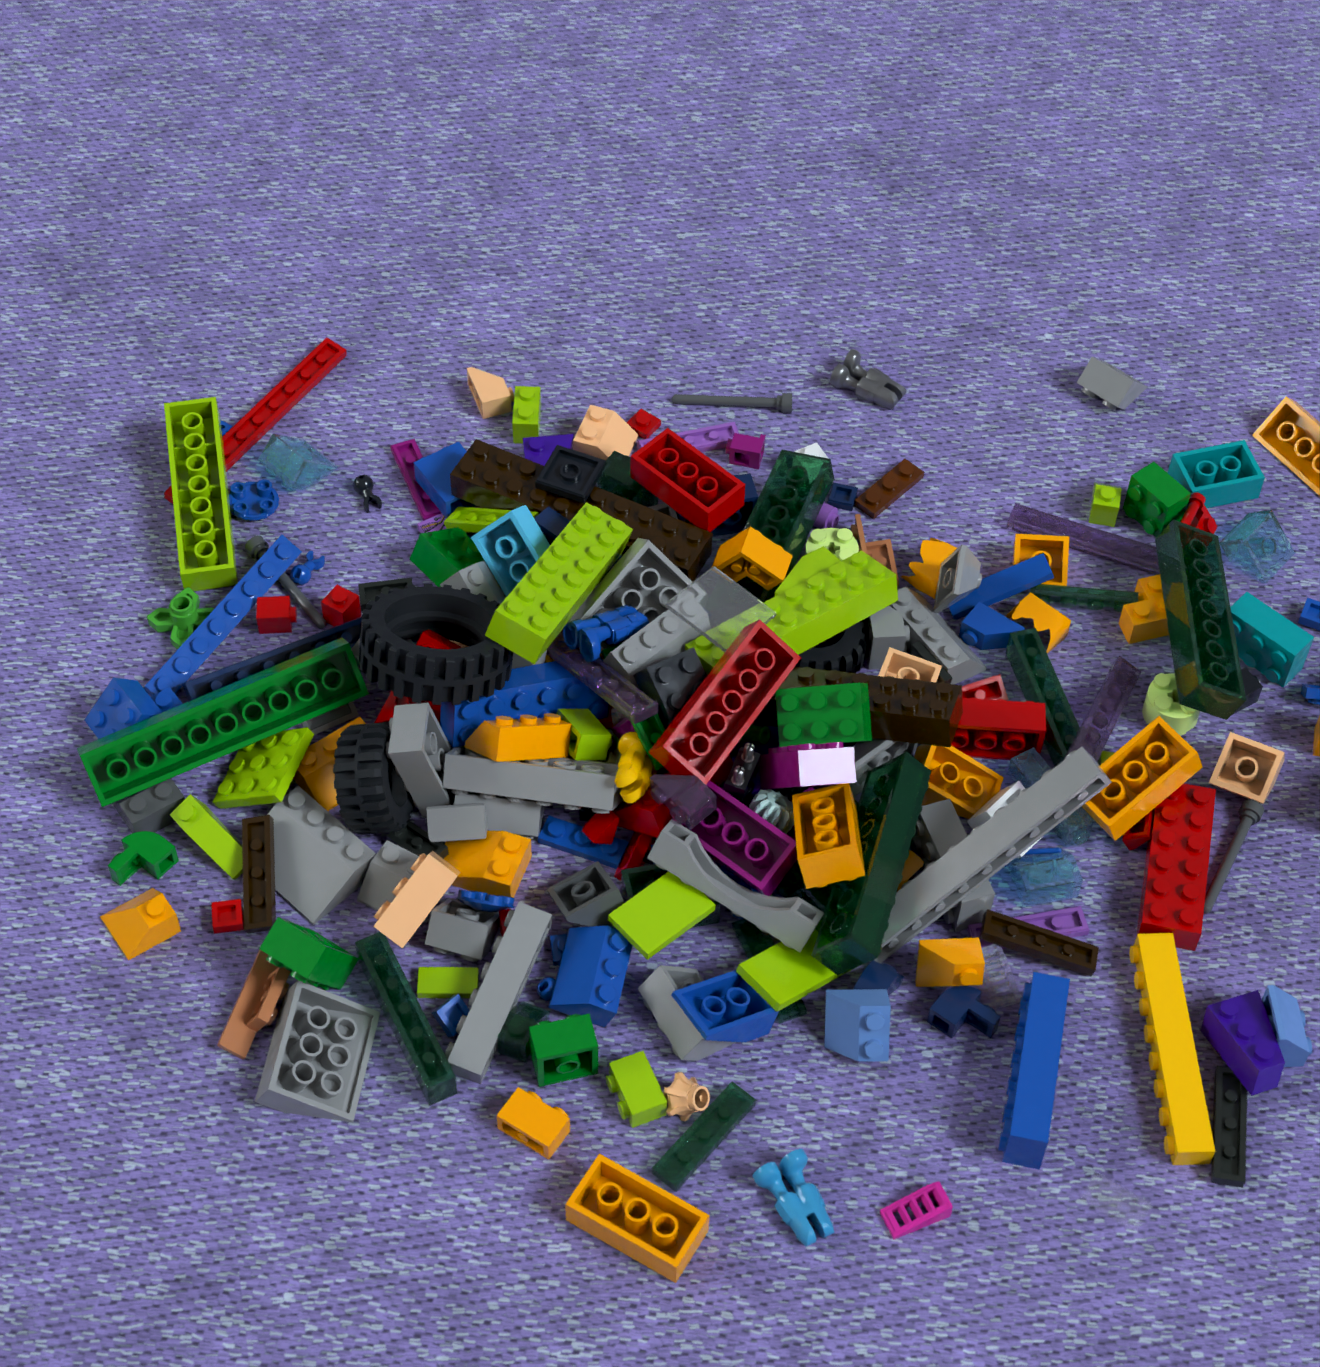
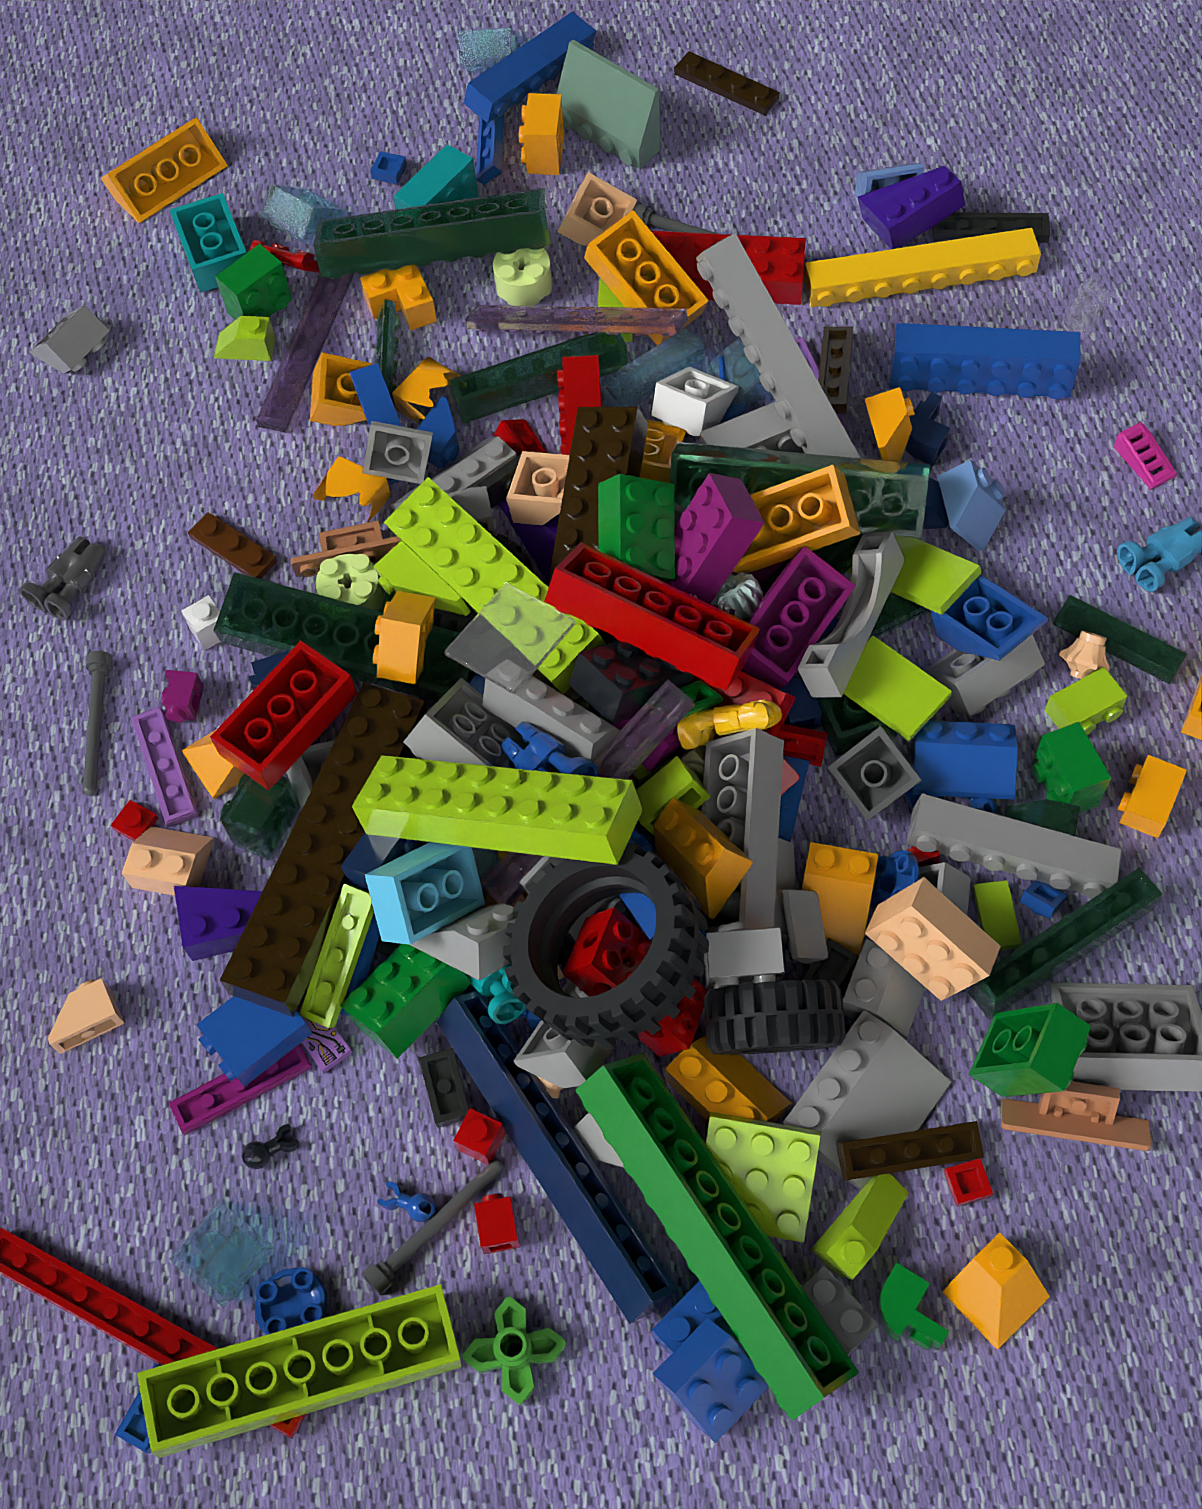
camera: 90 degrees left, 10 degrees up
(224, 617) = (517, 1291): blue plate -> none
(526, 413) = (128, 958): lime brick -> none
(570, 474) = (285, 847): black tile -> none
(684, 796) = (774, 651): clear purple slope -> none

